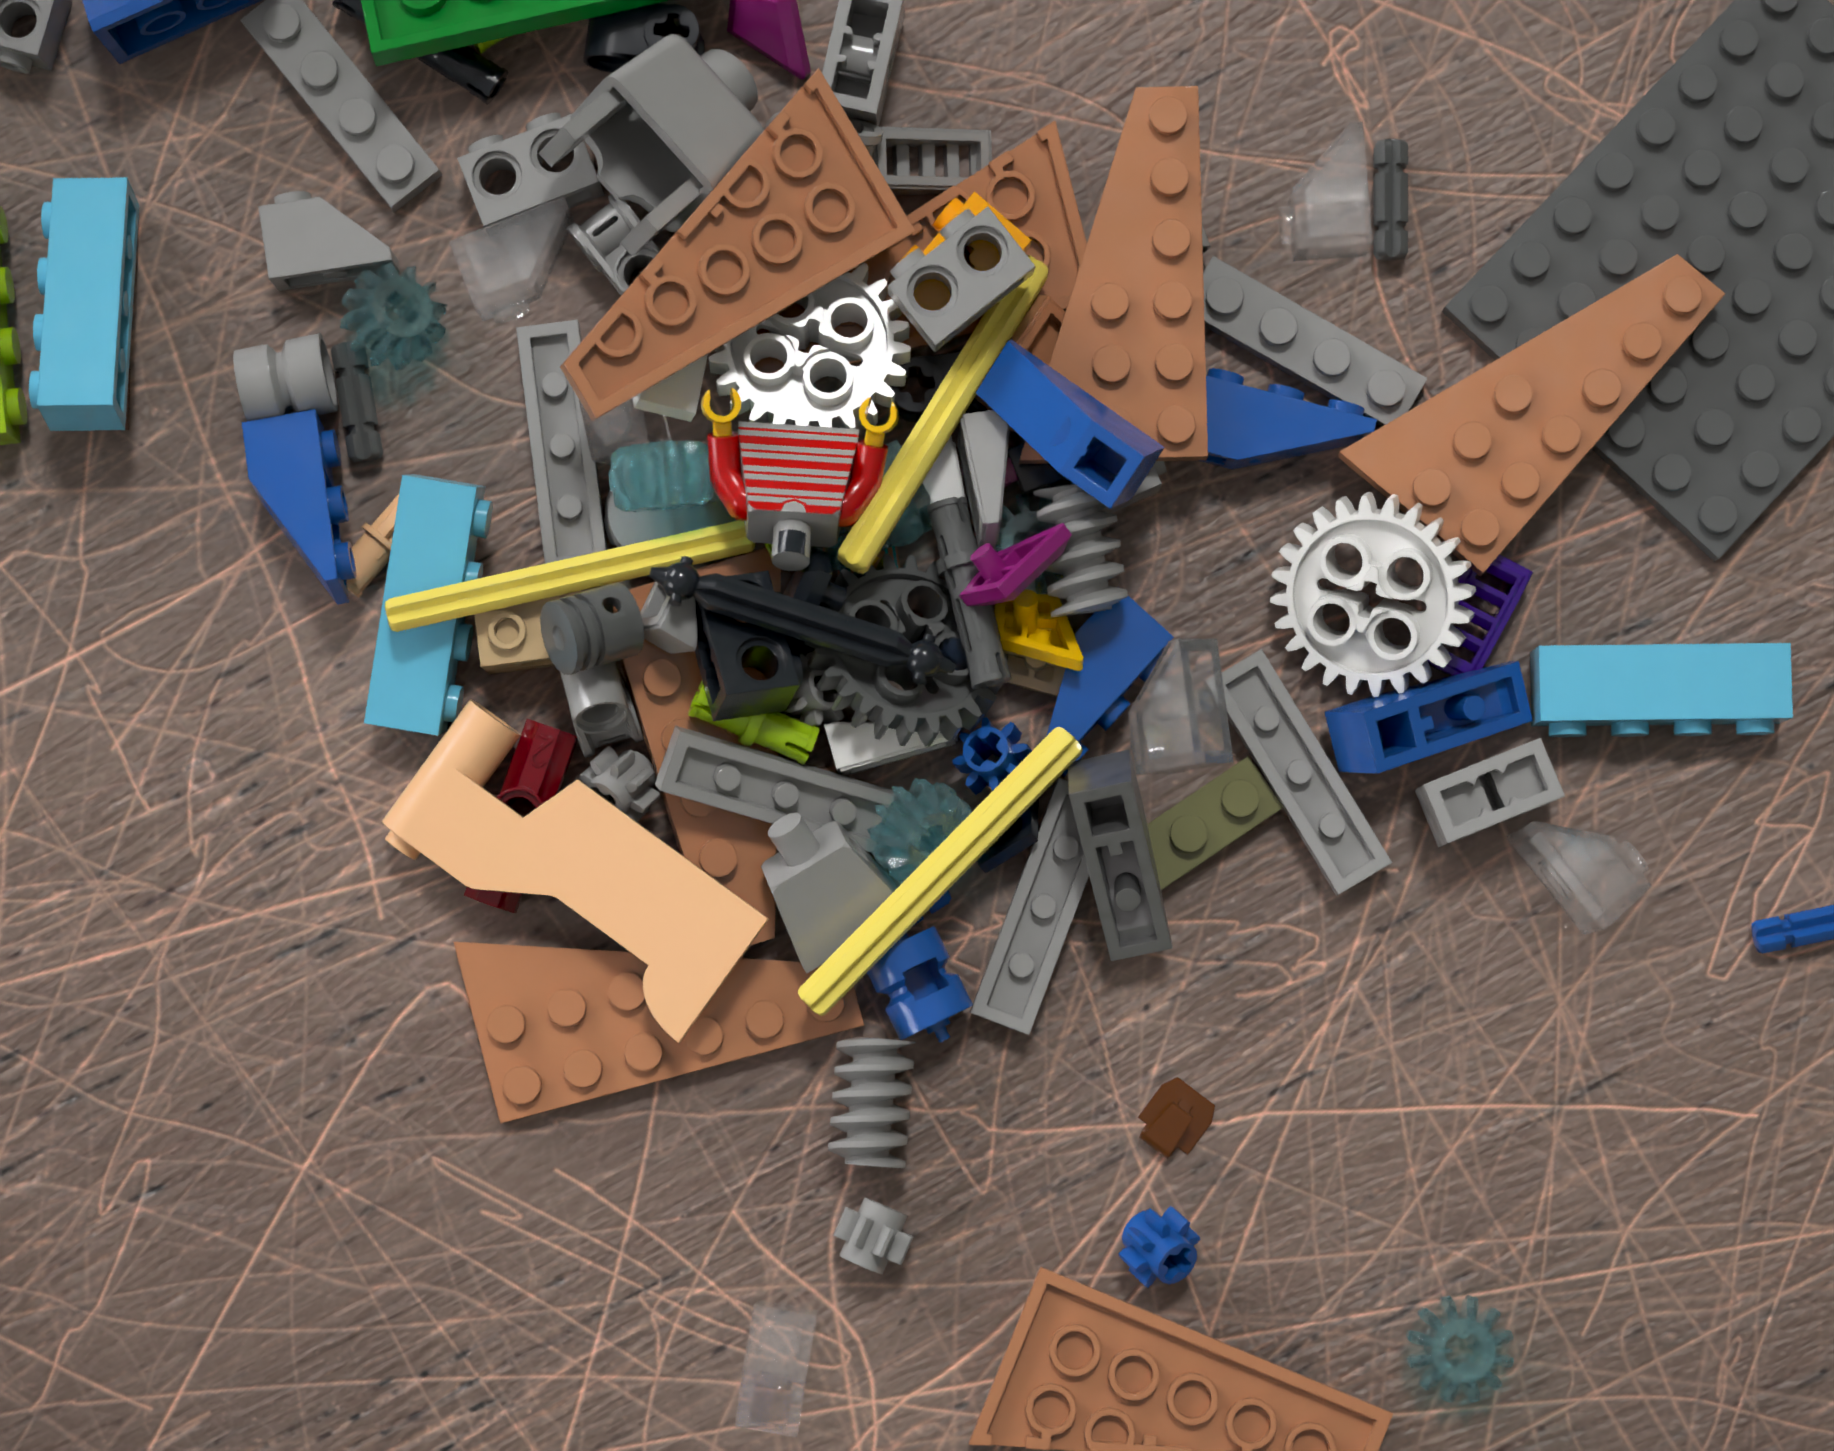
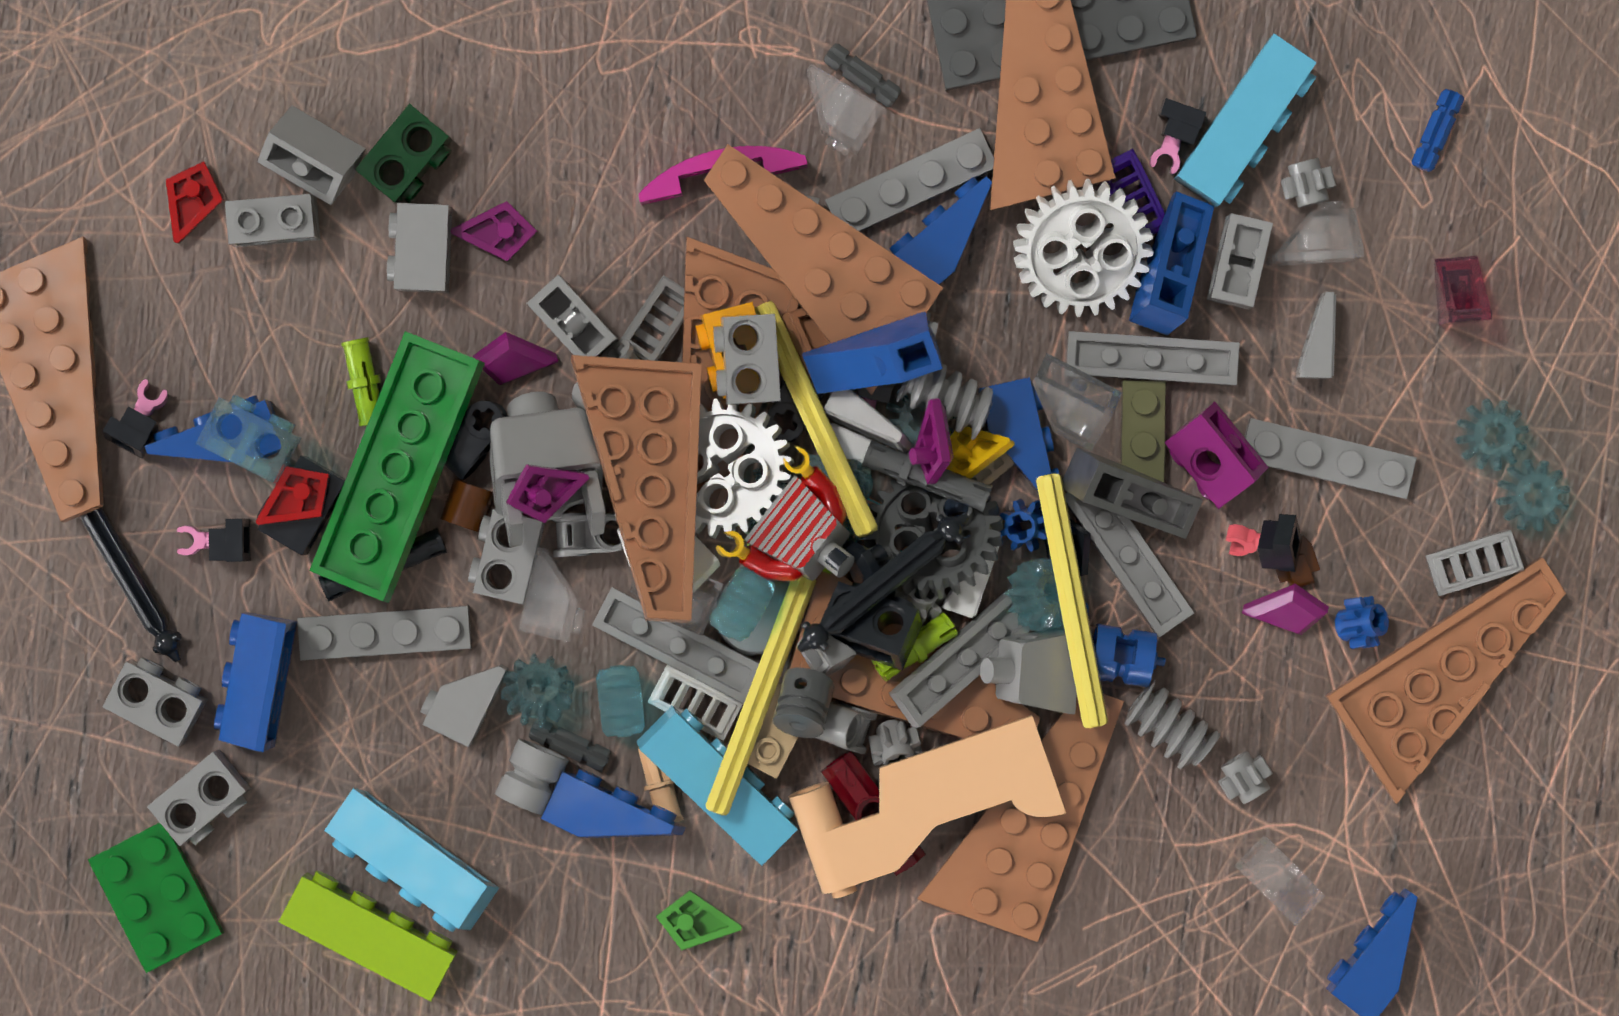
camera: 55 degrees left, 5 degrees up
(246, 696) = (695, 921): none -> bright green piece
(447, 420) = (620, 701): none -> clear light blue gear
(503, 460) = (663, 685): none -> white slope
(556, 85) = (467, 505): none -> reddish brown brick
(632, 140) = (544, 490): none -> magenta piece
(1102, 58) = (668, 185): none -> dark pink slope
(1113, 1146) = (1288, 609): none -> magenta piece
(1180, 1077) = (1276, 544): none -> black piece
(1251, 956) = (1216, 433): none -> magenta brick
(1328, 1069) = (1331, 458): none -> light grey plate
(1372, 1366) = (1509, 550): none -> light grey slope
(1448, 965) = (1319, 347): none -> light grey slope
(1504, 1266) = (1506, 435): none -> clear light blue gear
(1598, 614) = (1181, 126): none -> black piece
(1641, 811) = (1308, 182): none -> light grey gear
(1641, 1089) = (1461, 291): none -> clear pink slope

